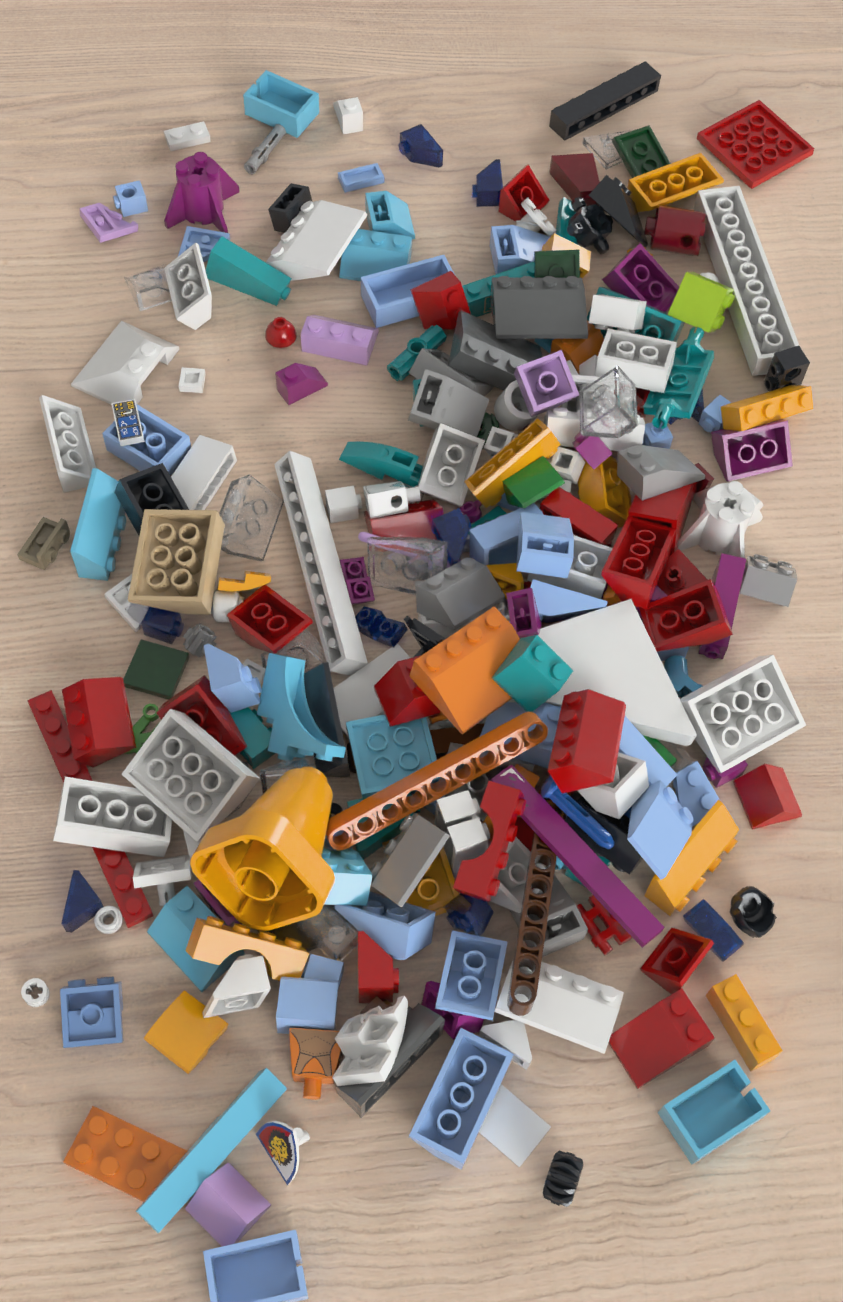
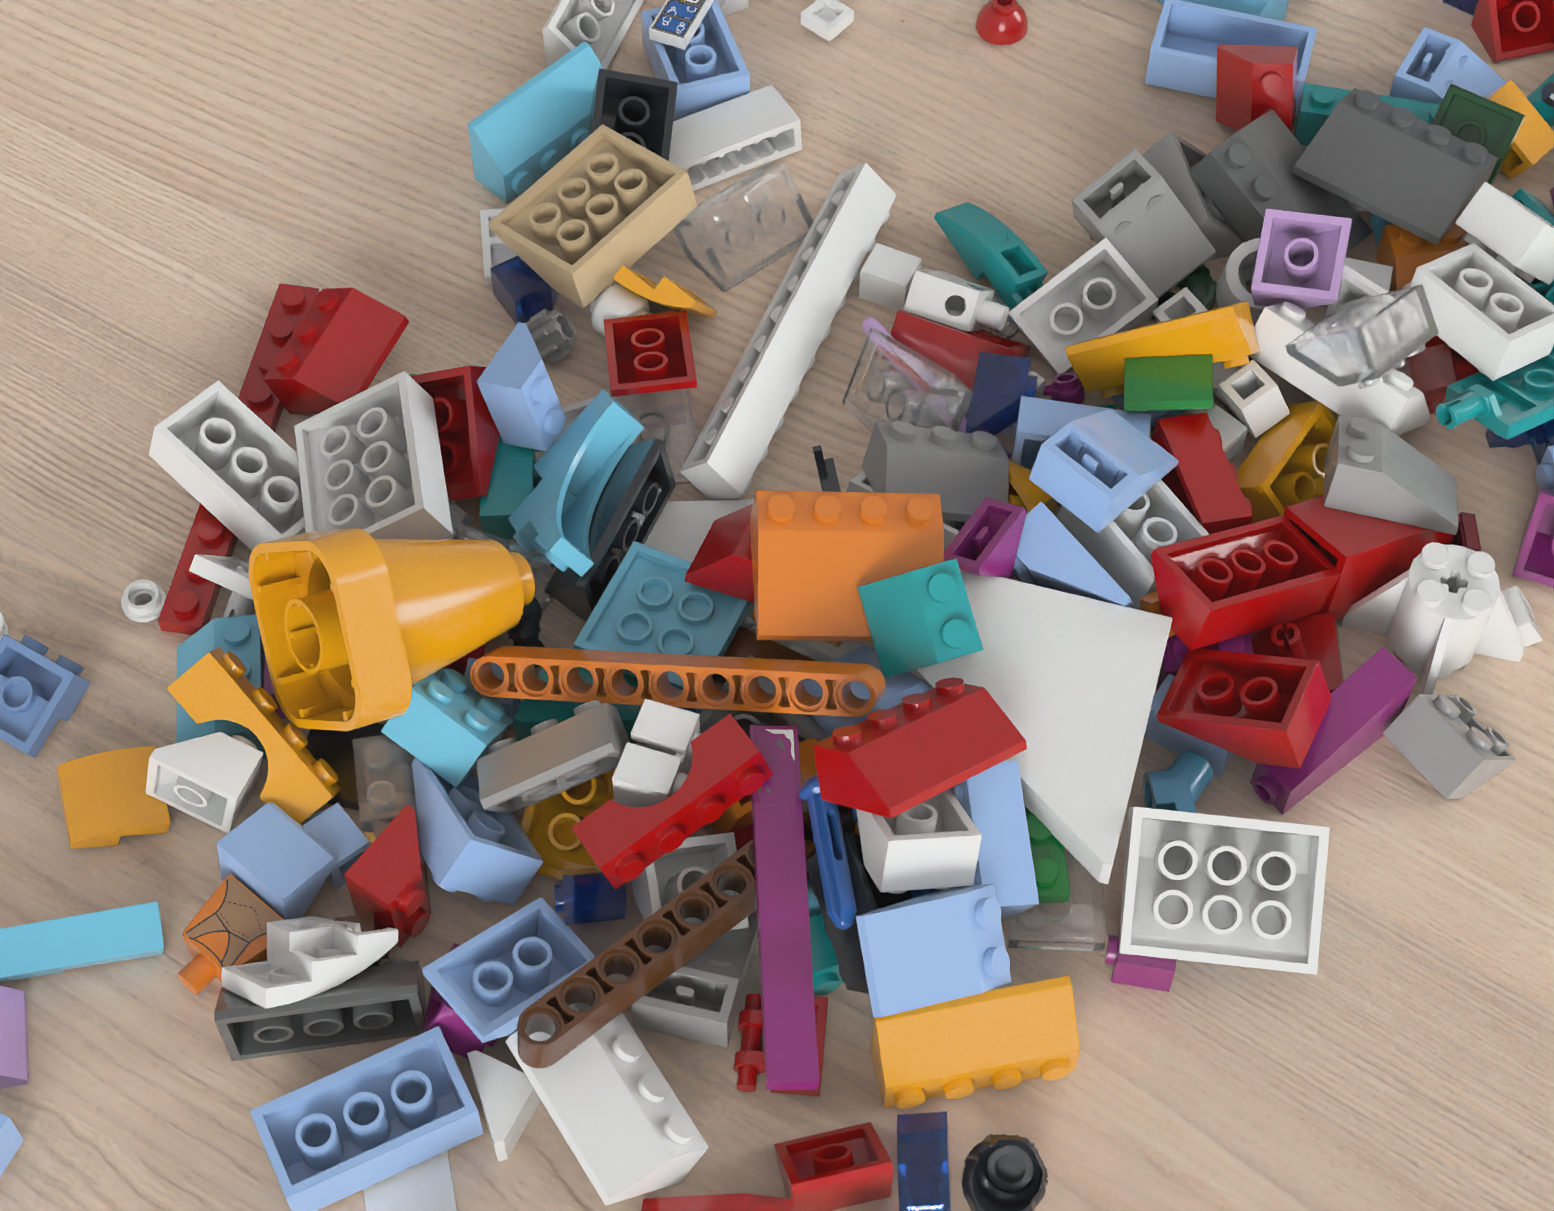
camera: 40 degrees right, 5 degrees down
(44, 543) = (450, 113): dark tan bracket -> none
(81, 903) = (124, 556): clear blue slope -> none
(156, 669) = (462, 335): dark green tile -> none
(283, 1146) = (111, 1019): shield -> none
(298, 382) = (971, 93): magenta slope -> none
(338, 339) = (1075, 68): lavender slope -> none
(357, 580) = (824, 387): magenta slope -> none
(378, 627) = (797, 458): clear blue slope -> none
(402, 364) = (1201, 134): teal piece -> none
(534, 219) = (1509, 55): white plate -> none
(592, 449) = (1300, 390): magenta brick -> none
(657, 437) = (1441, 444): light blue brick -> none
(694, 791) = (1063, 948): light blue wing -> none
(767, 796) = (1180, 1043): red slope -> none

